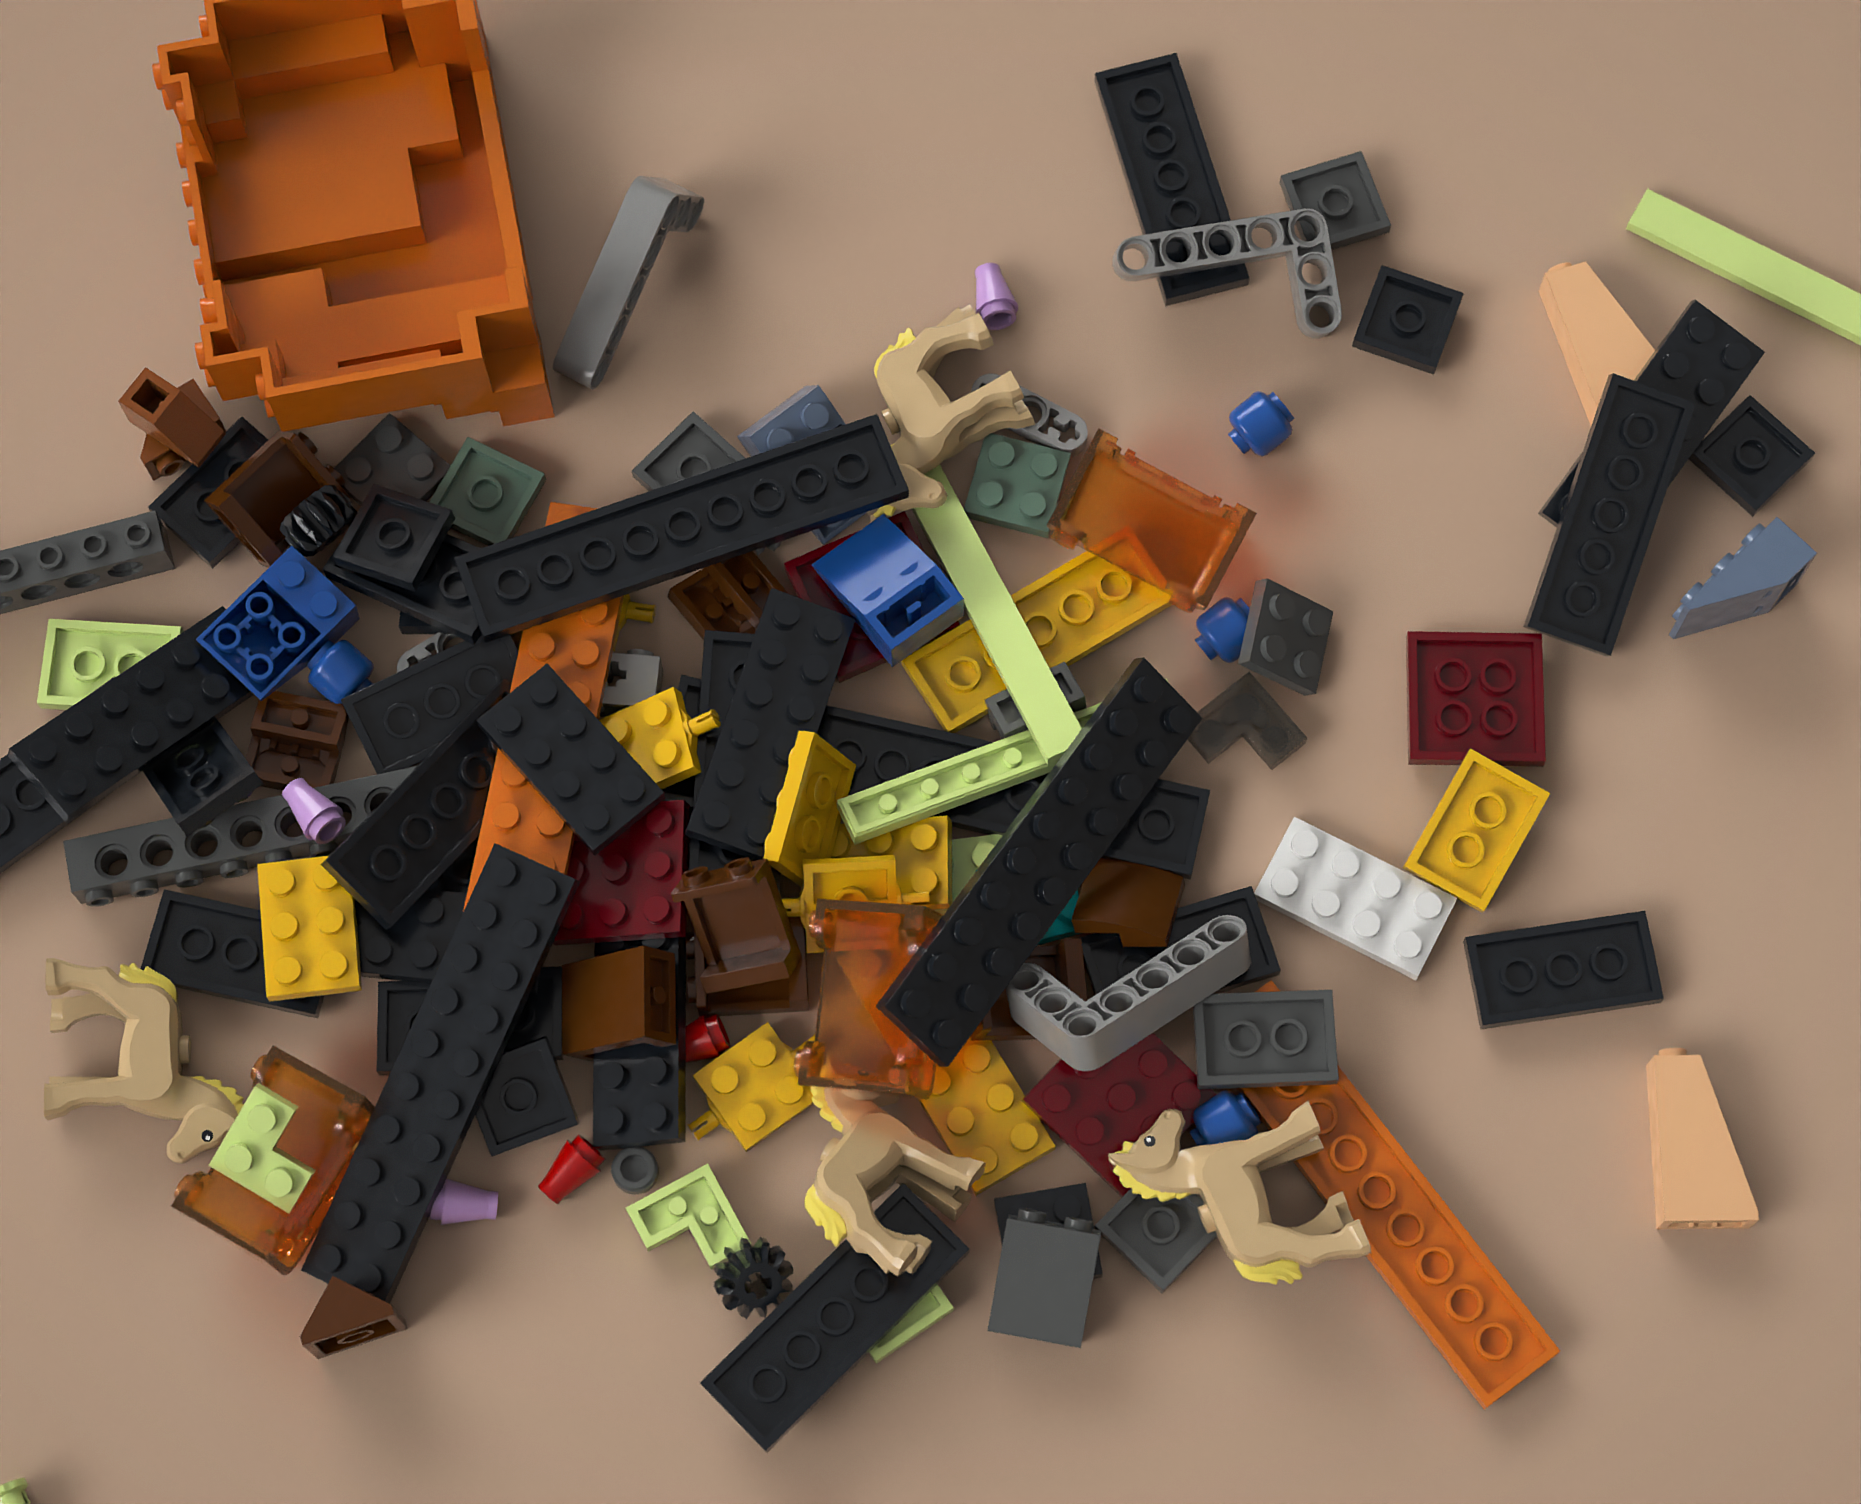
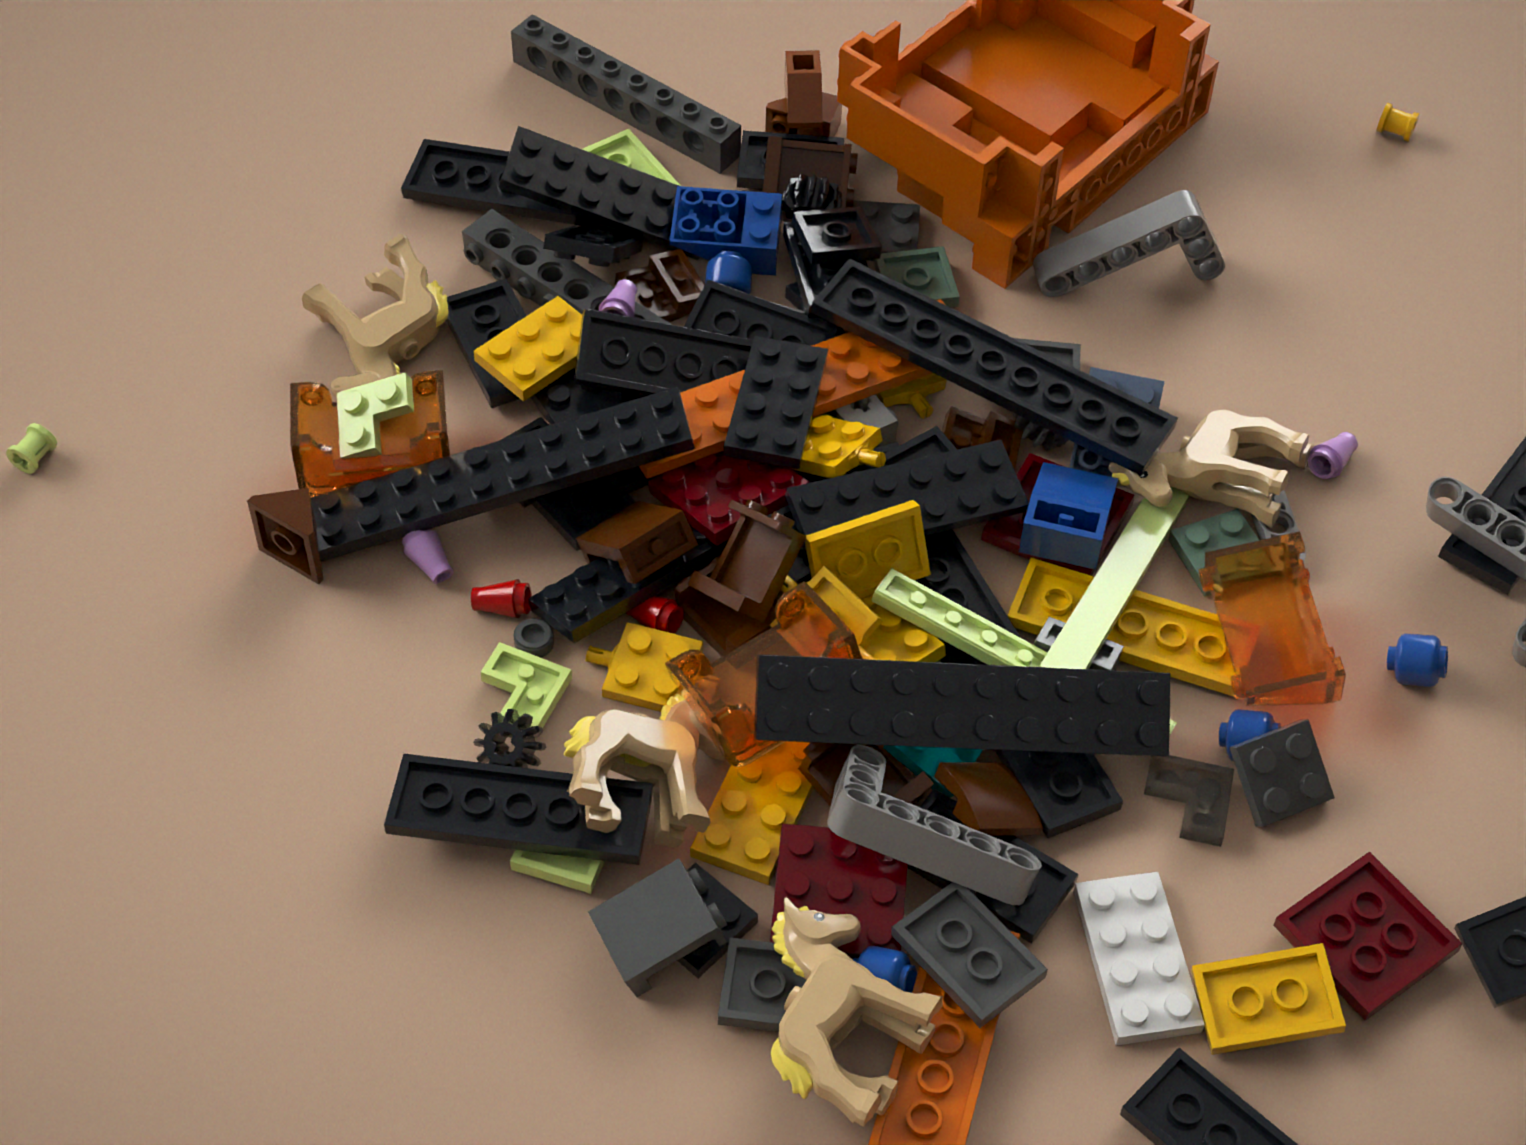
camera: 50 degrees right, 20 degrees down
(525, 1099) = (528, 537): black plate -> none

